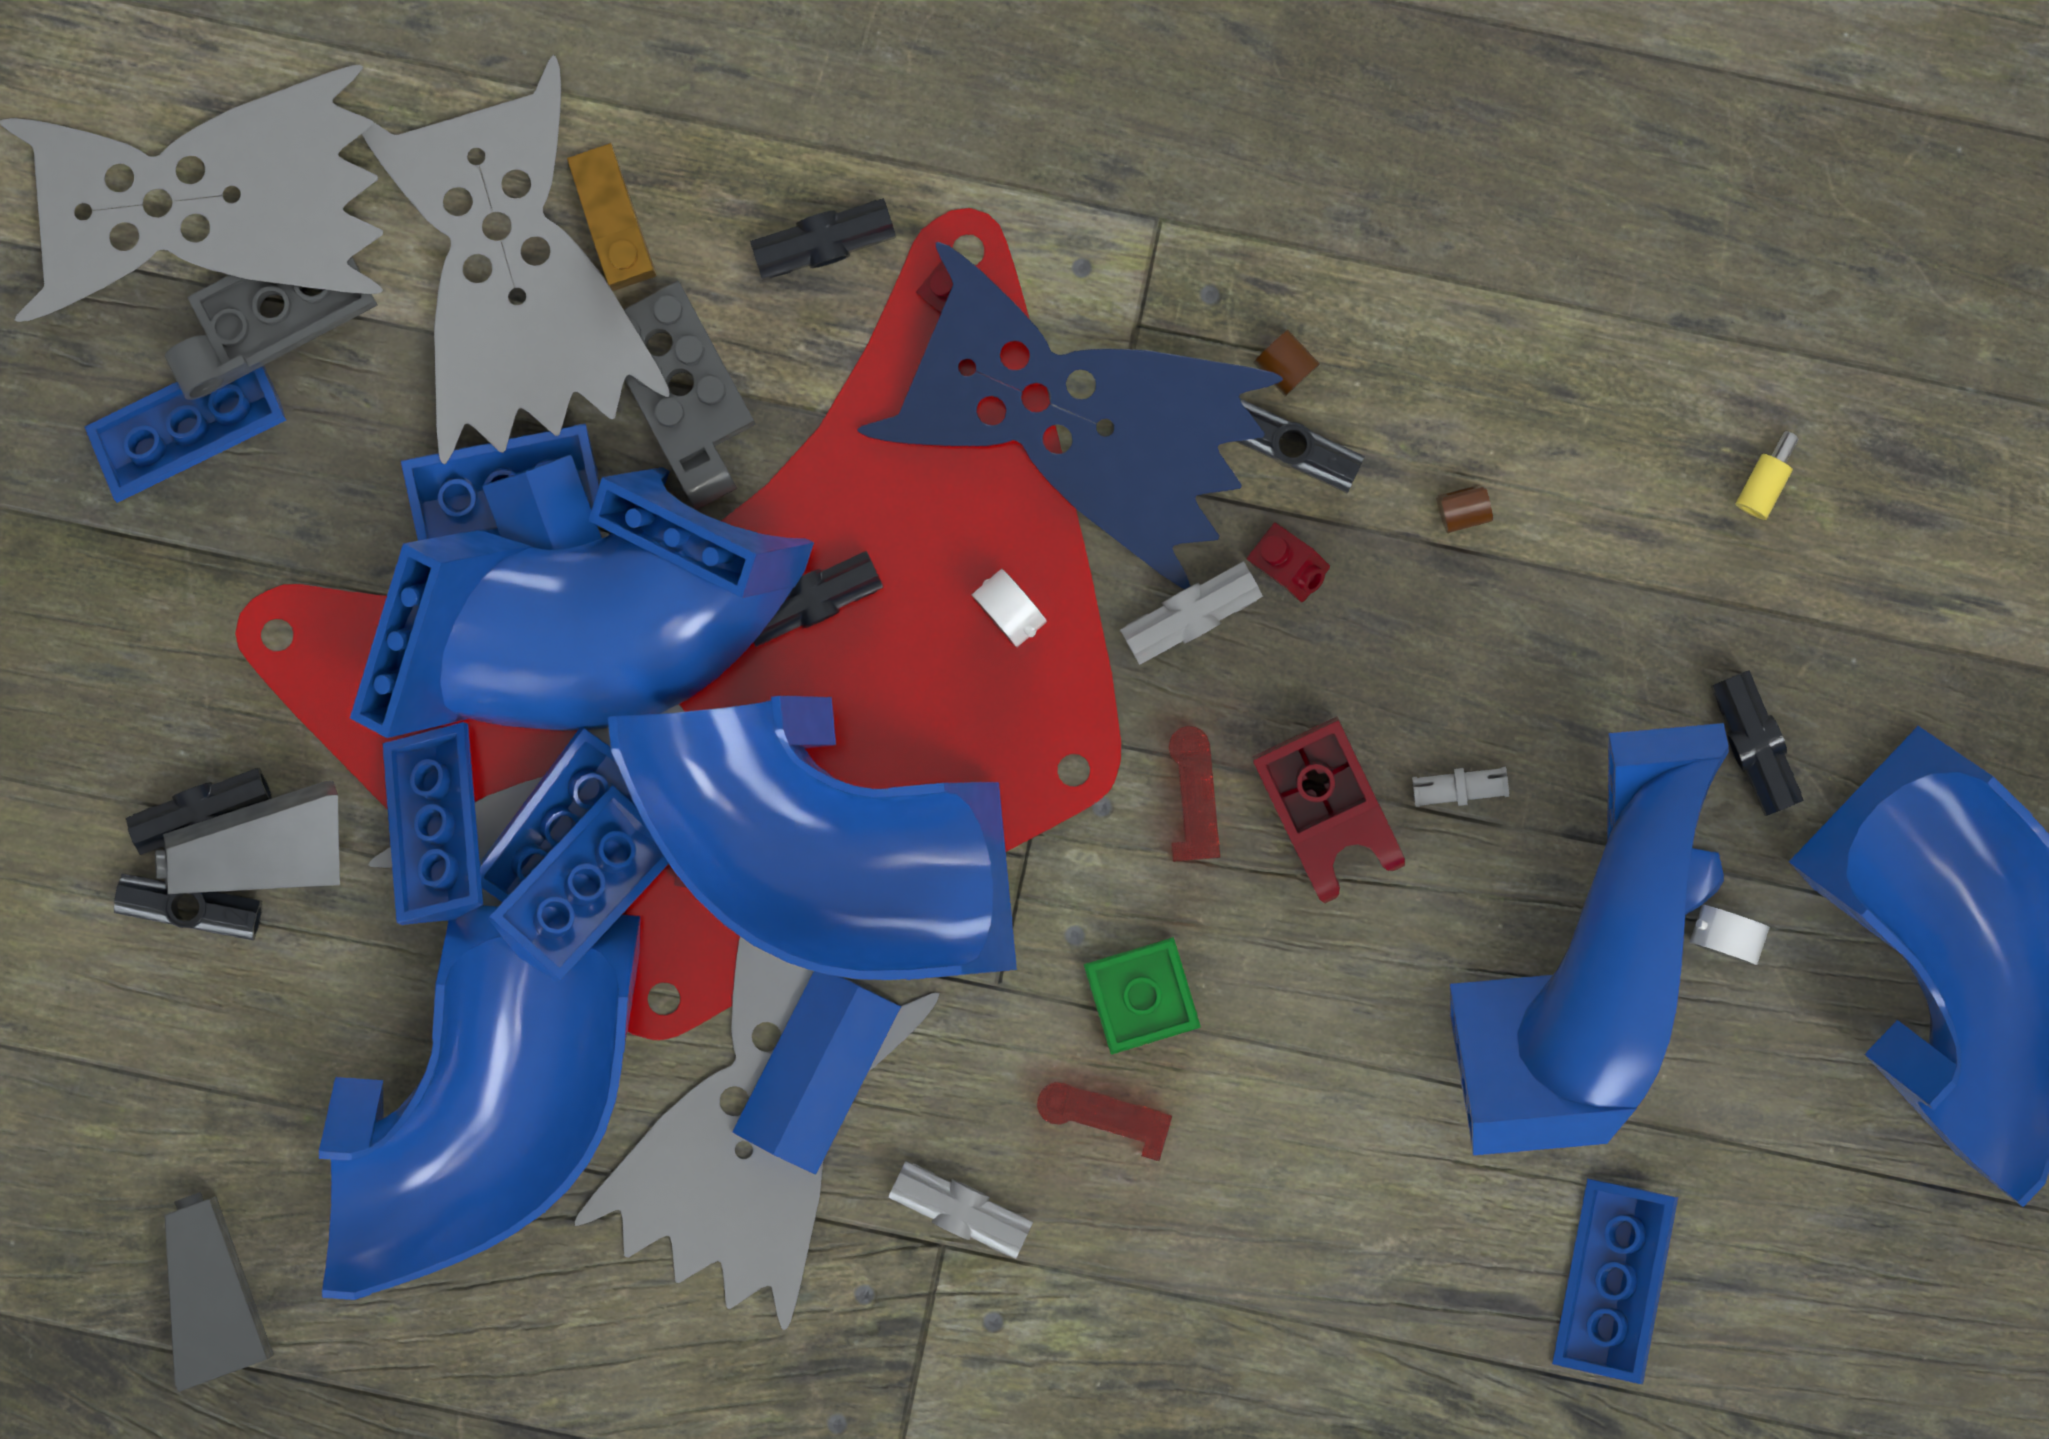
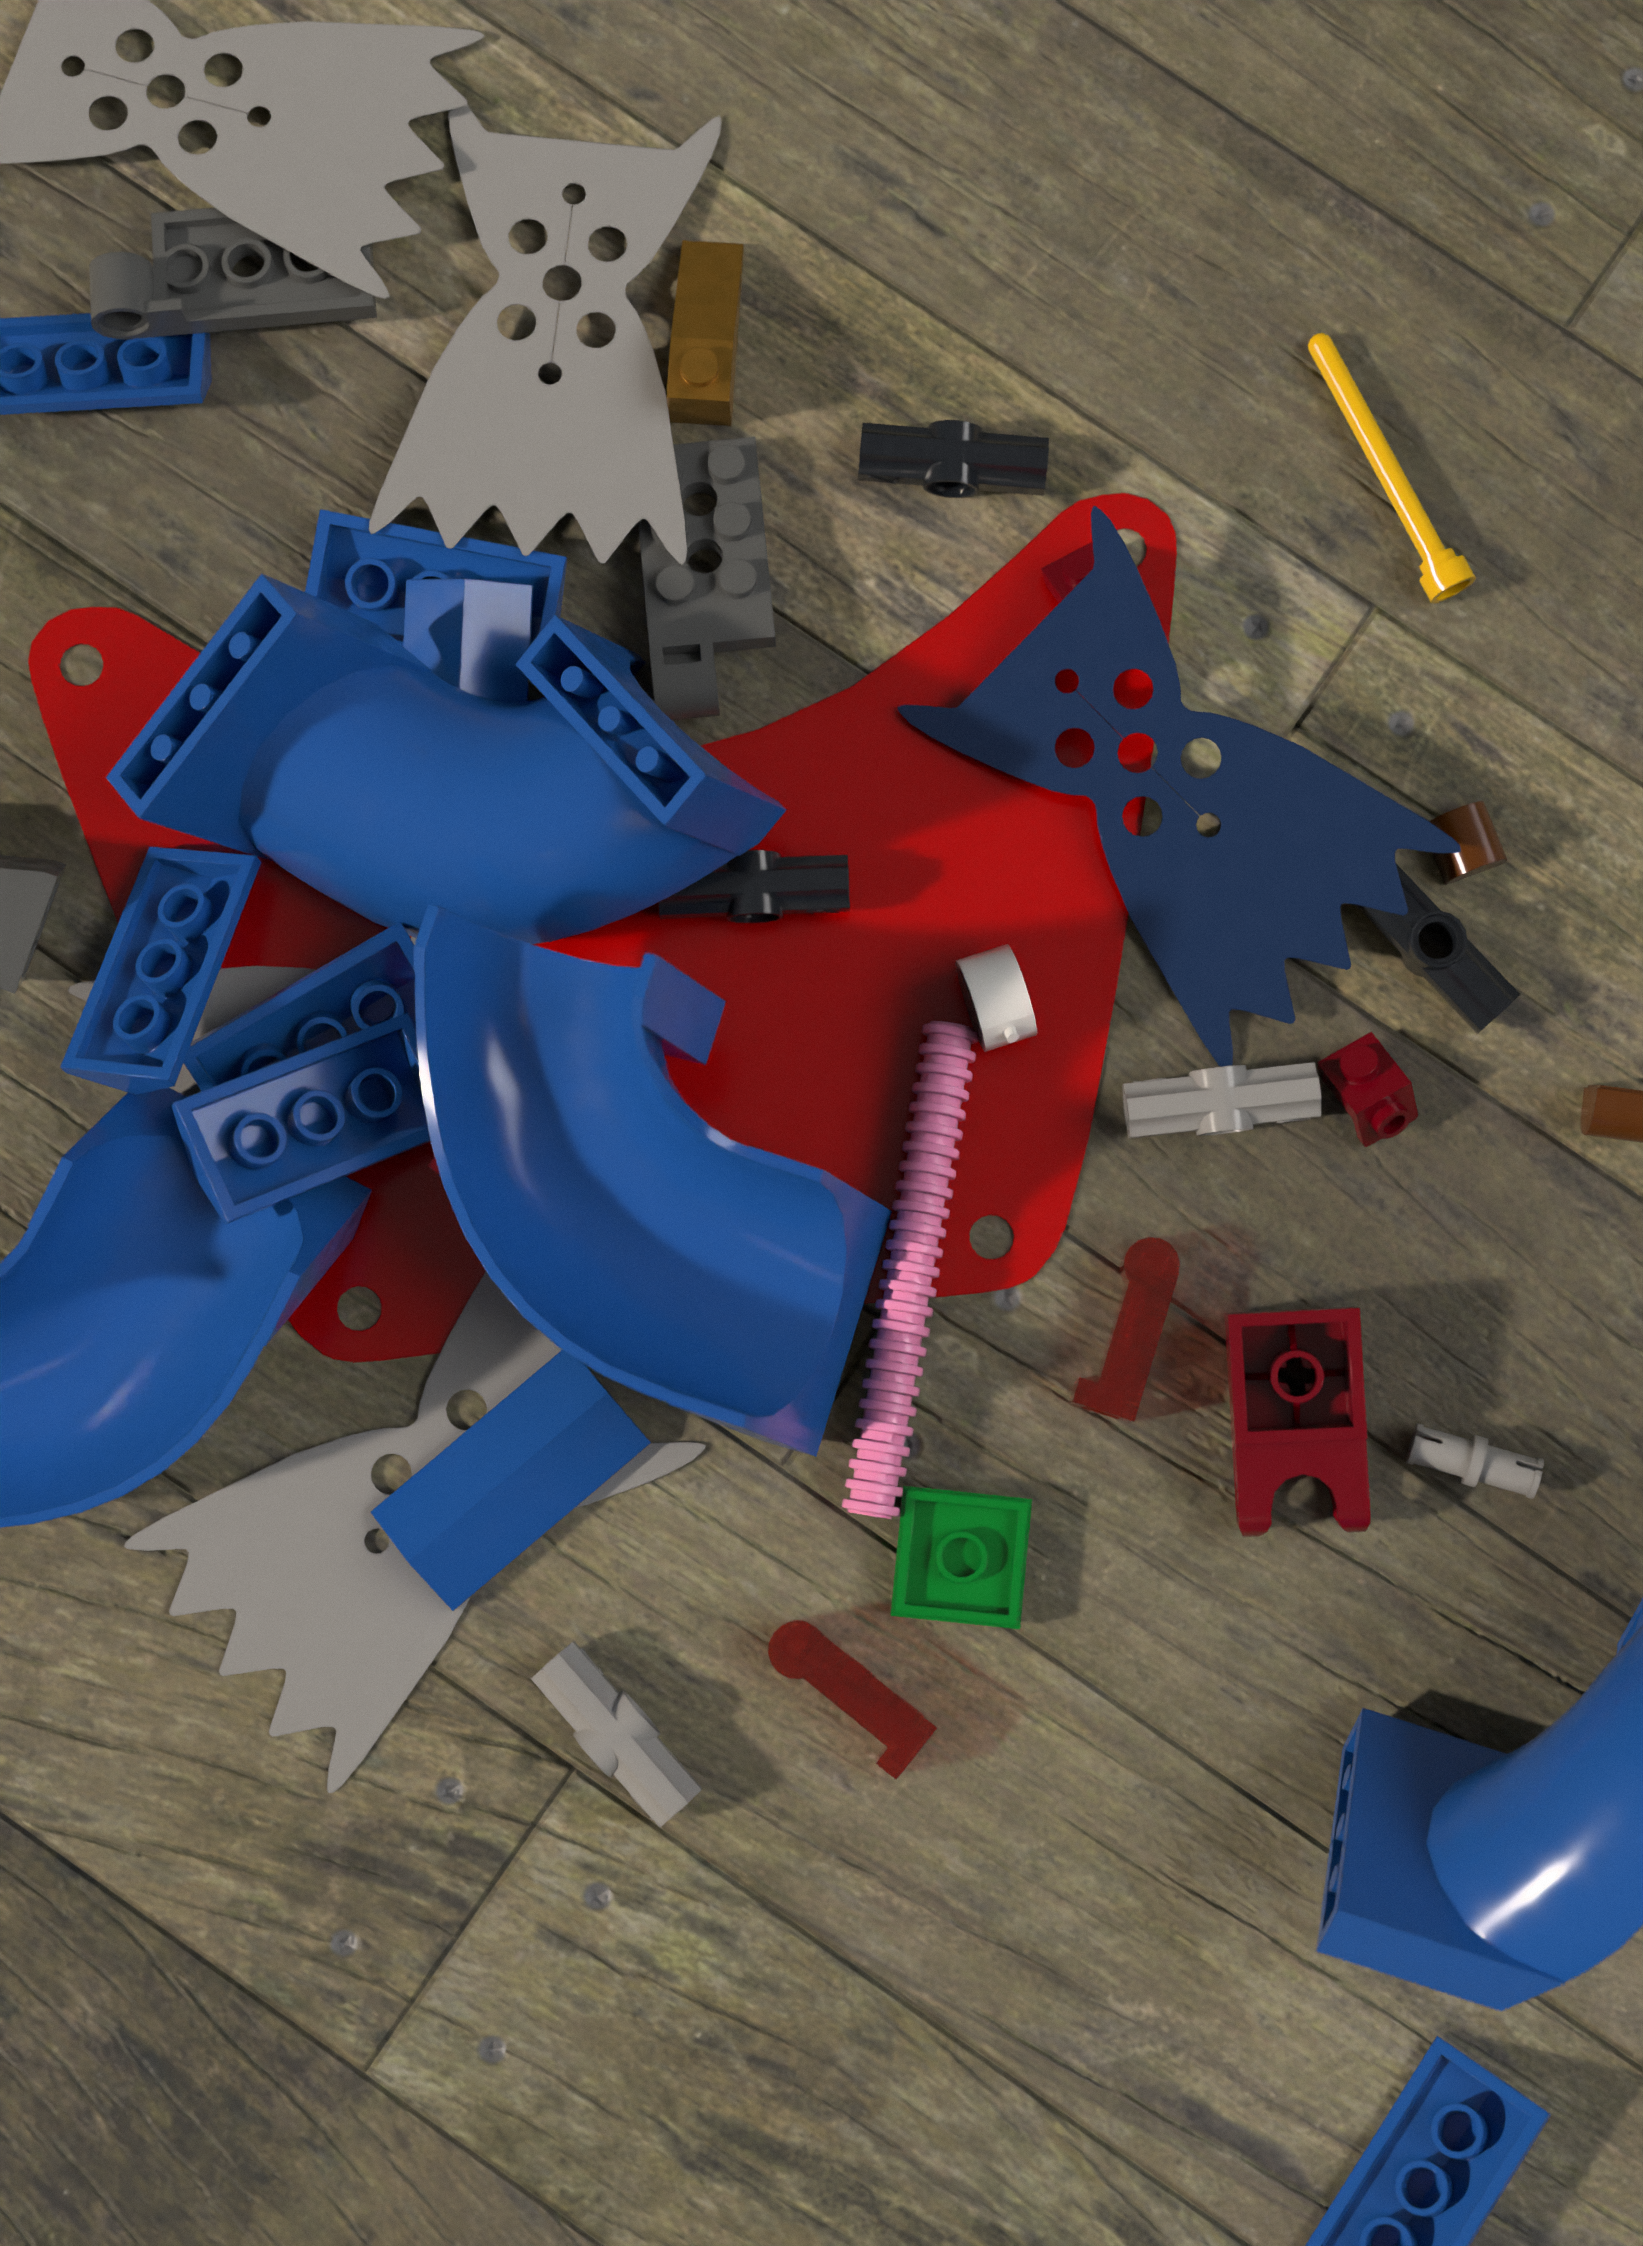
camera: 20 degrees right, 5 degrees down
(1027, 816) = (910, 1269): none -> bright pink piece
(1193, 176) = (1441, 569): none -> yellow piece

